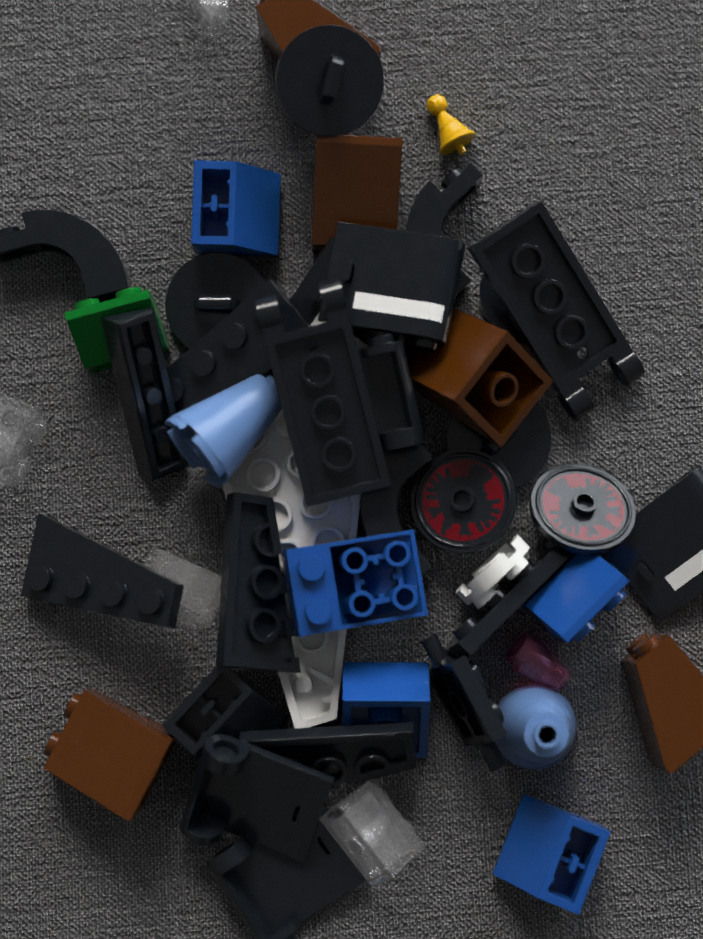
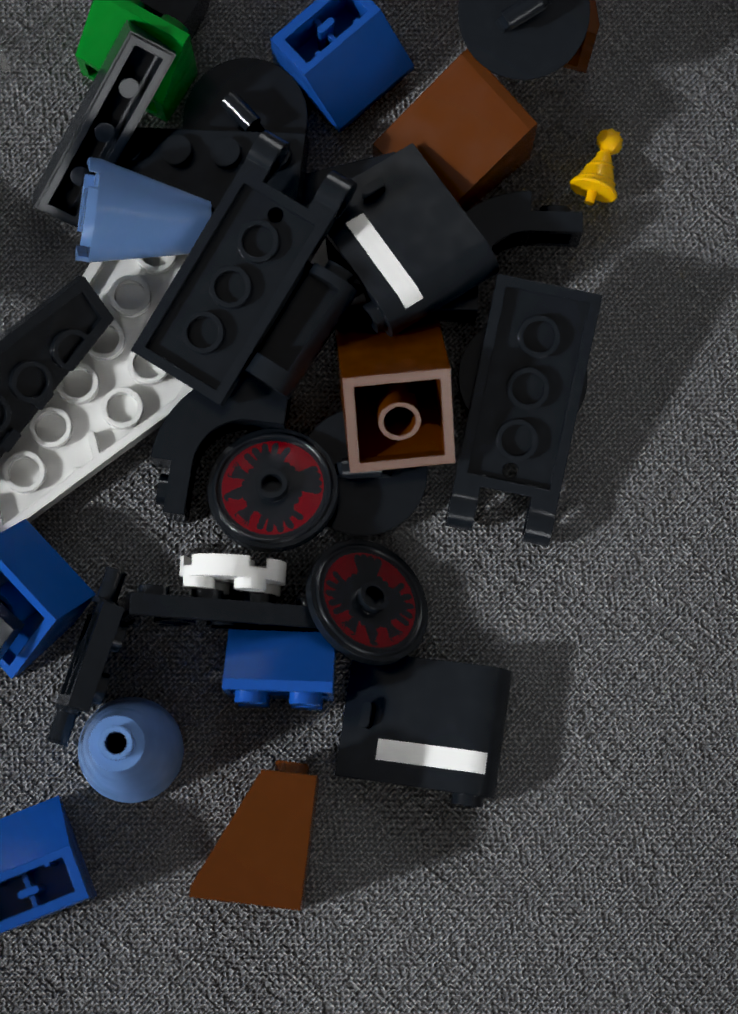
camera: 50 degrees right, 5 degrees down
(354, 583) = (101, 455): blue slope -> none
(537, 662) = (190, 696): clear pink cone -> none

